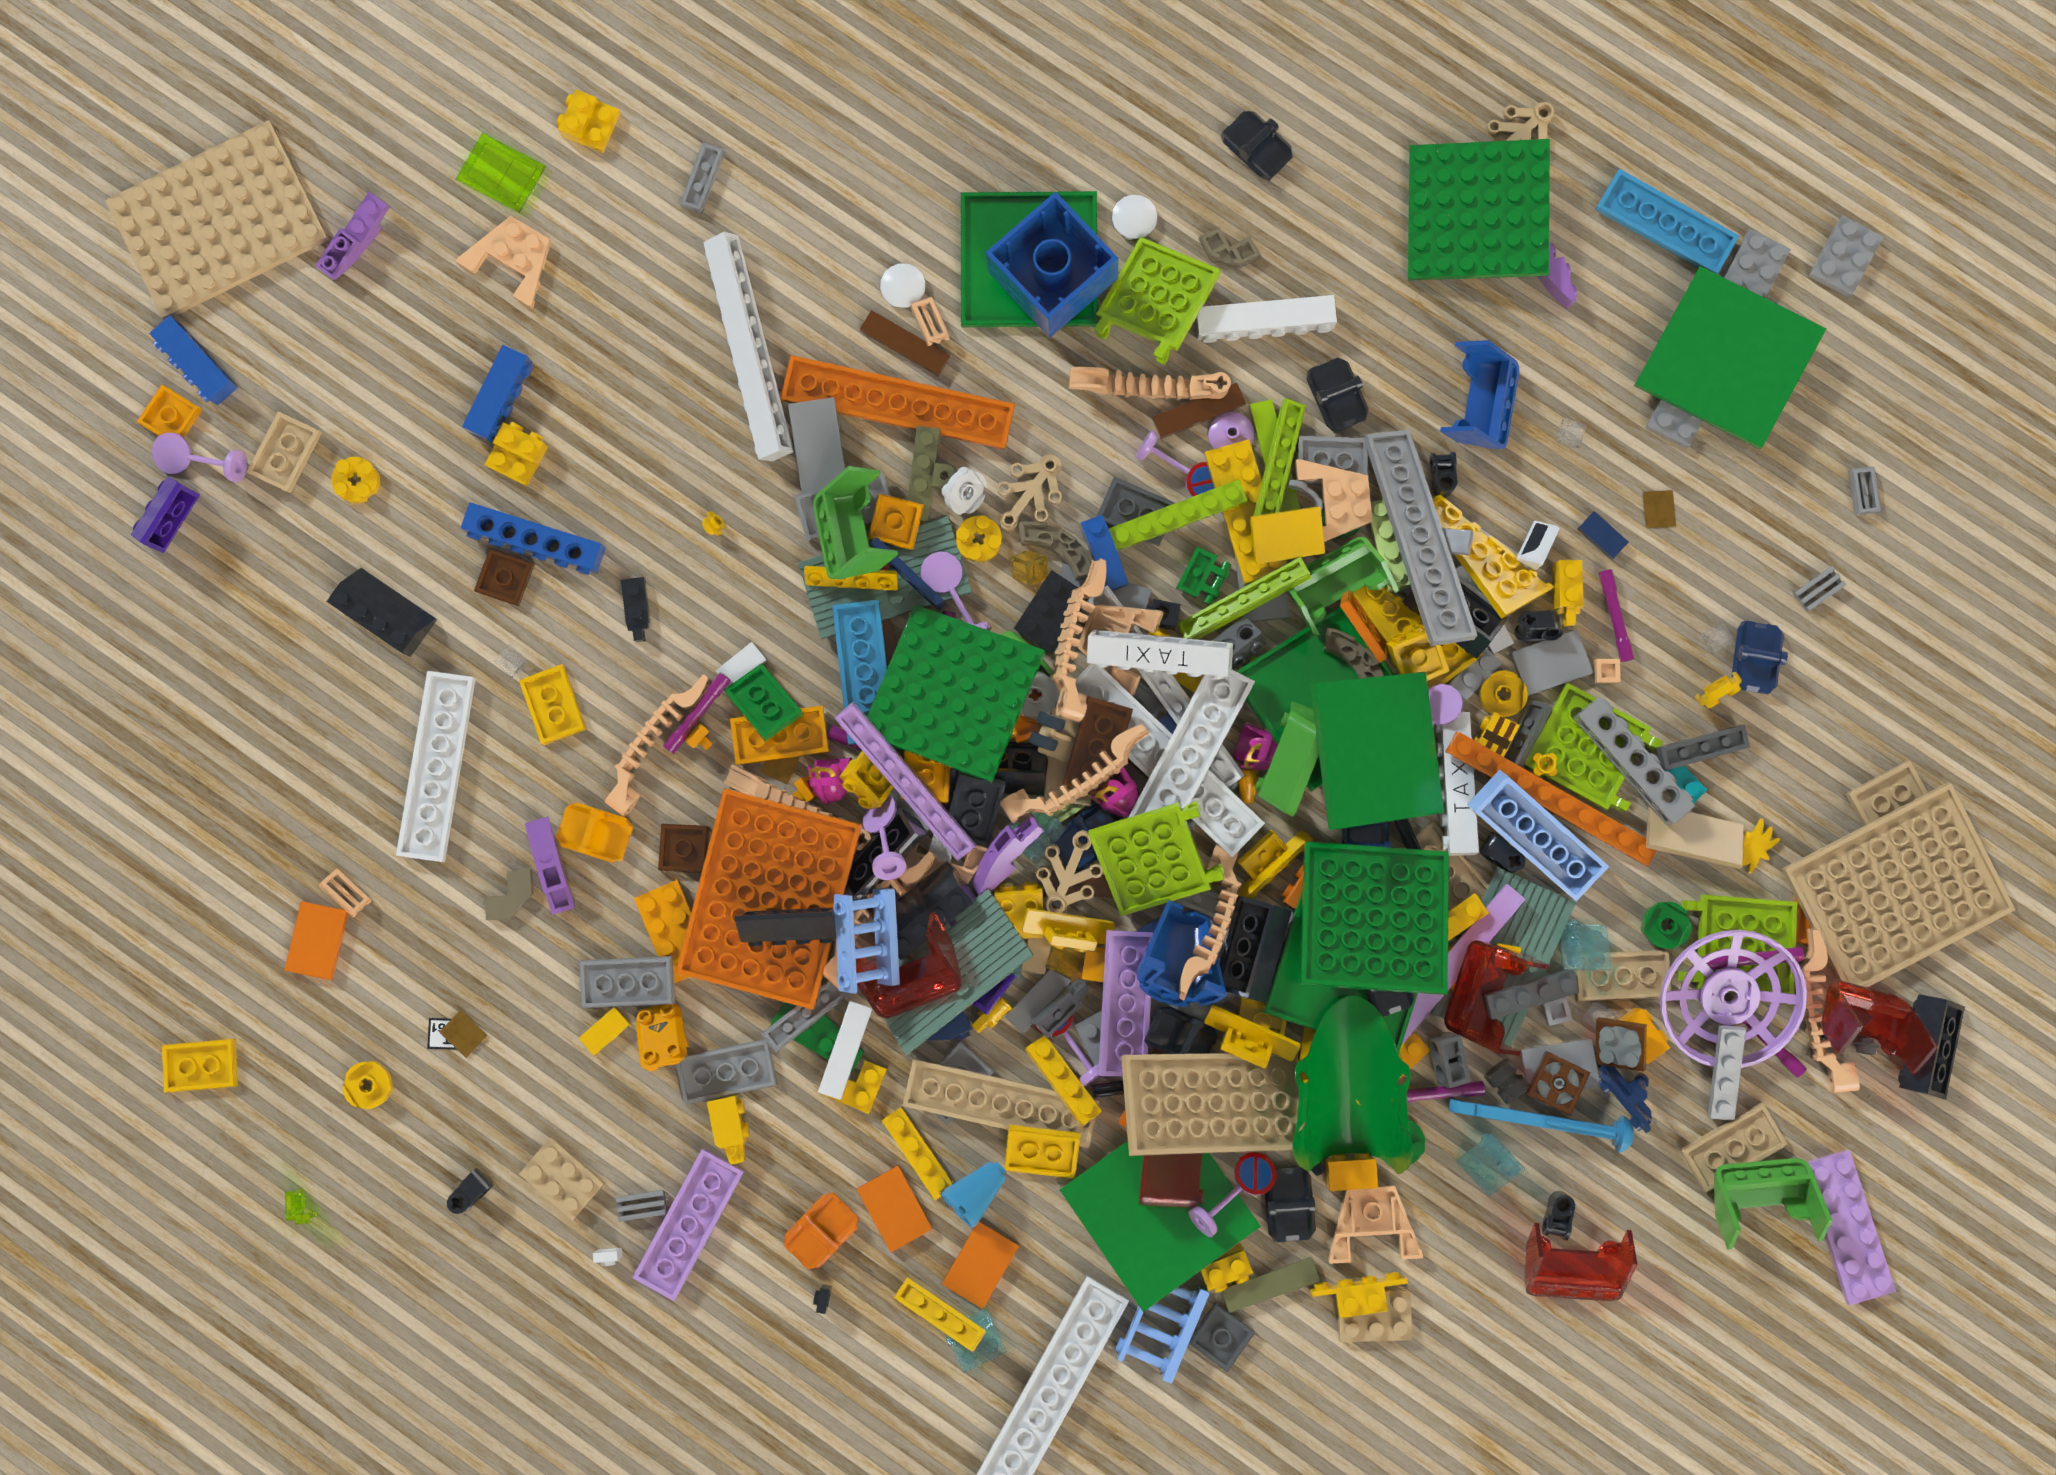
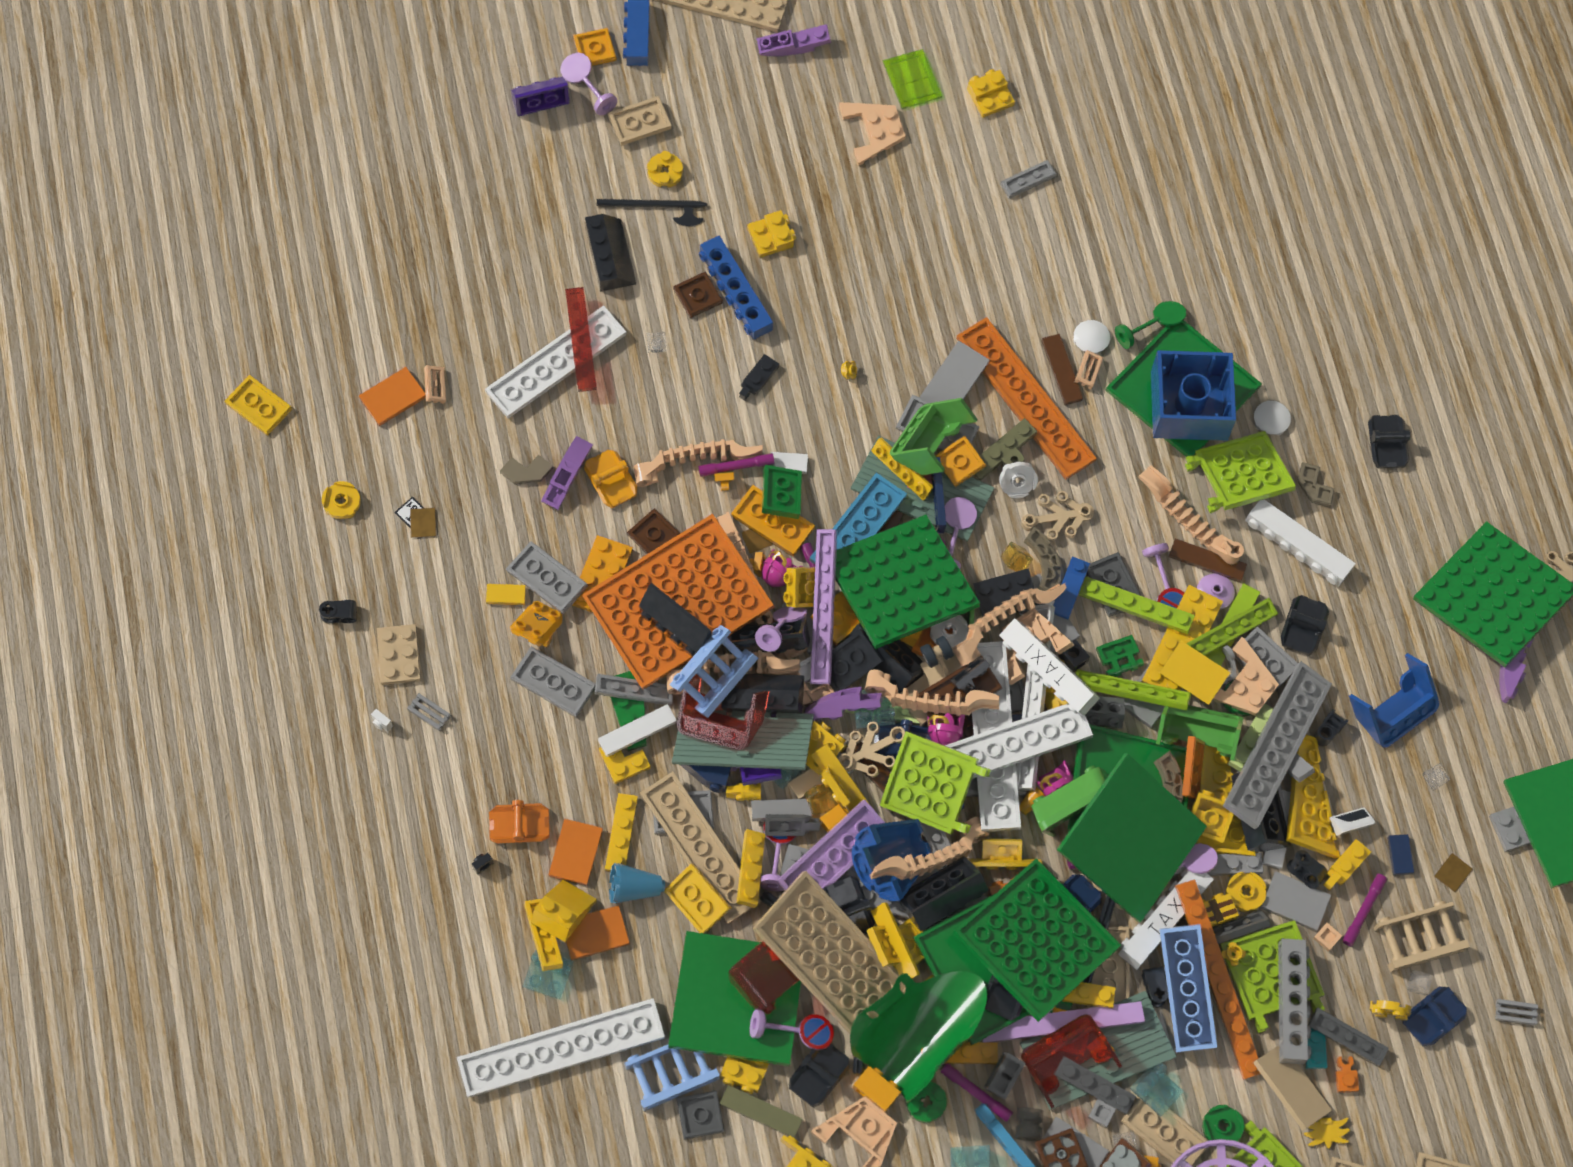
camera: 35 degrees right, 15 degrees down
(295, 1203) = (233, 528): clear neon green bracket -> none
(423, 511) = (686, 219): none -> black piece
(438, 725) = (580, 339): none -> clear red tile
(498, 393) = (793, 192): blue brick -> none
(552, 704) = (656, 388): yellow tile -> none
(688, 1224) = (445, 747): lavender plate -> none
(729, 1127) = (525, 712): yellow hinge -> none
(748, 347) = (965, 291): white brick -> none
(935, 1274) = (562, 910): none -> yellow slope
(949, 199) = (1166, 313): none -> green piece
(983, 526) = (997, 506): yellow plate -> none
(1095, 721) = (964, 679): none -> black hinge
(1697, 616) = (1417, 955): none -> tan fence
(1730, 783) = (1346, 1078): none -> orange plate

